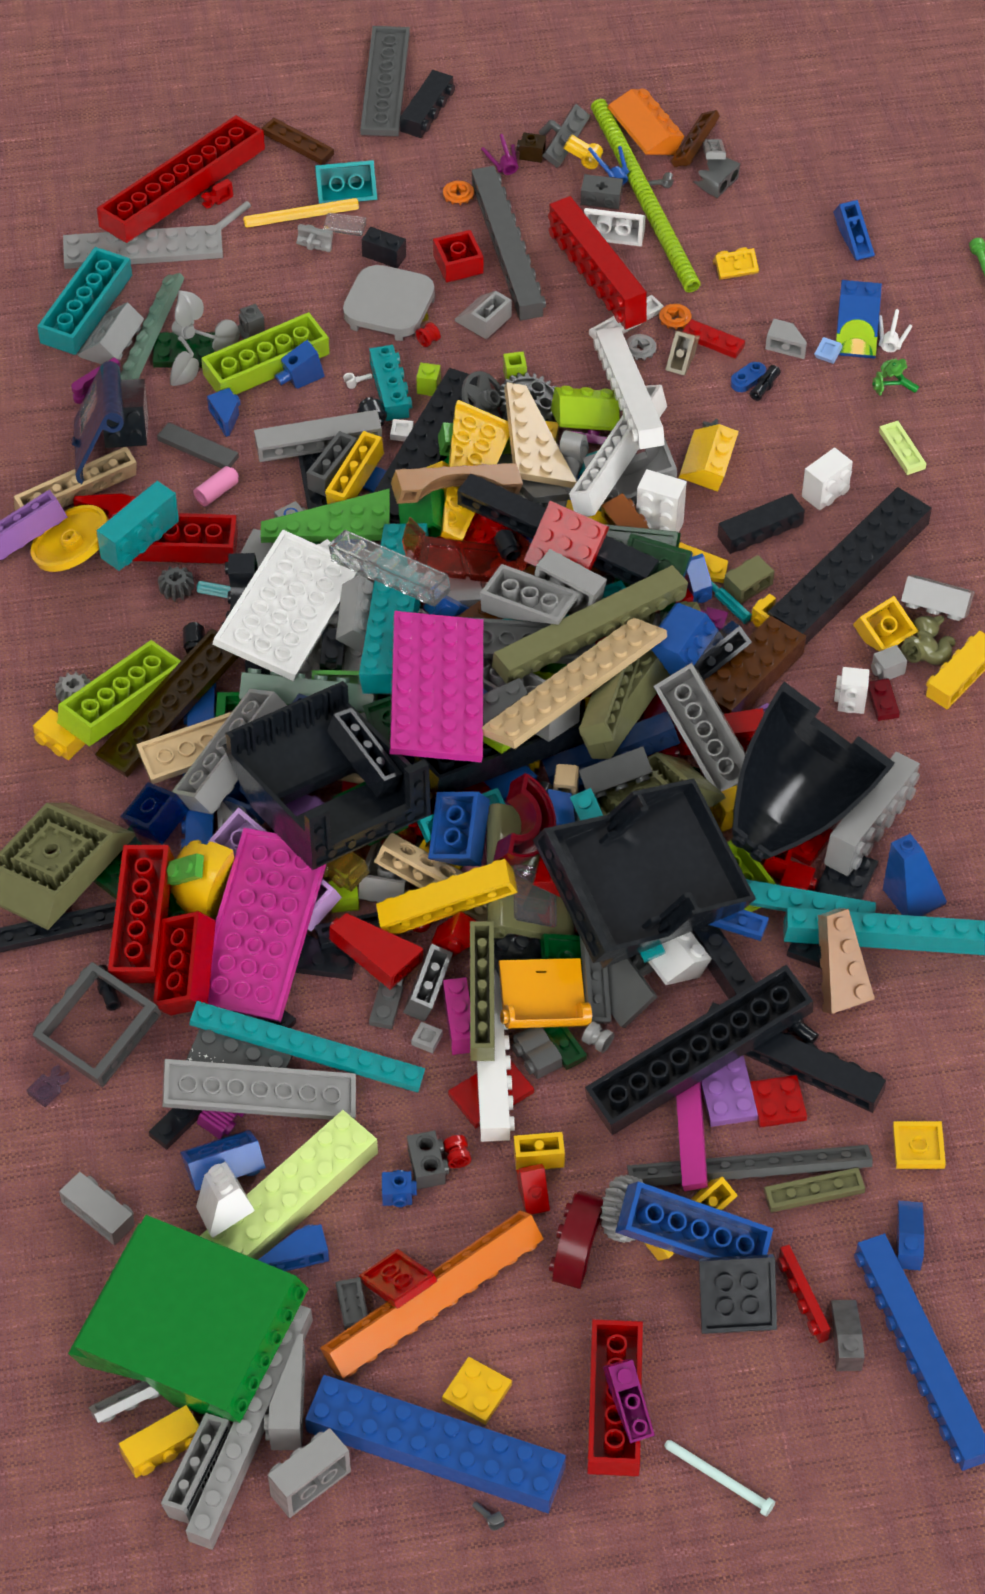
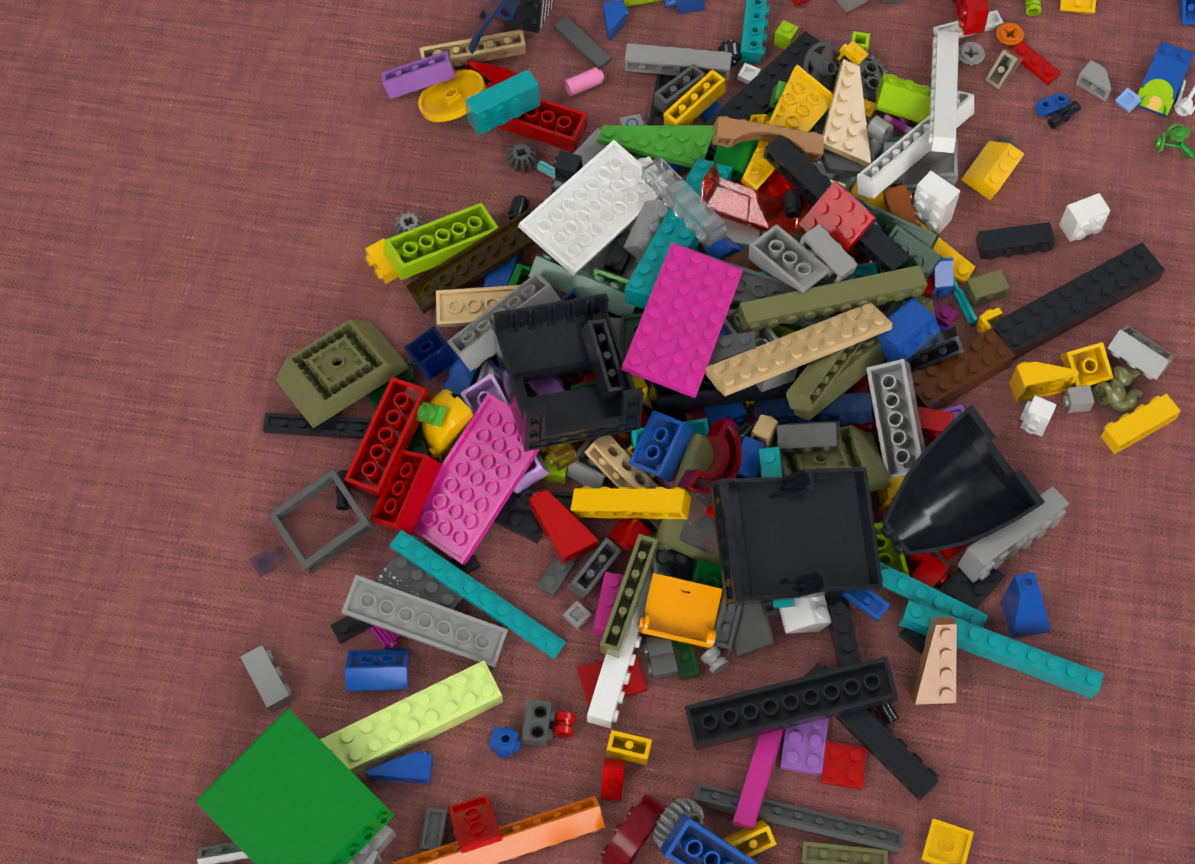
camera: 20 degrees right, 10 degrees up
(222, 1200) = (361, 709): white slope -> none
(352, 381) = (724, 19): white hand -> none
(511, 374) = (853, 52): none -> yellow bracket
(842, 650) = (1040, 380): none -> yellow slope
(883, 699) = (1062, 429): dark red plate -> none
(902, 447) = (1160, 206): yellowish green plate -> none

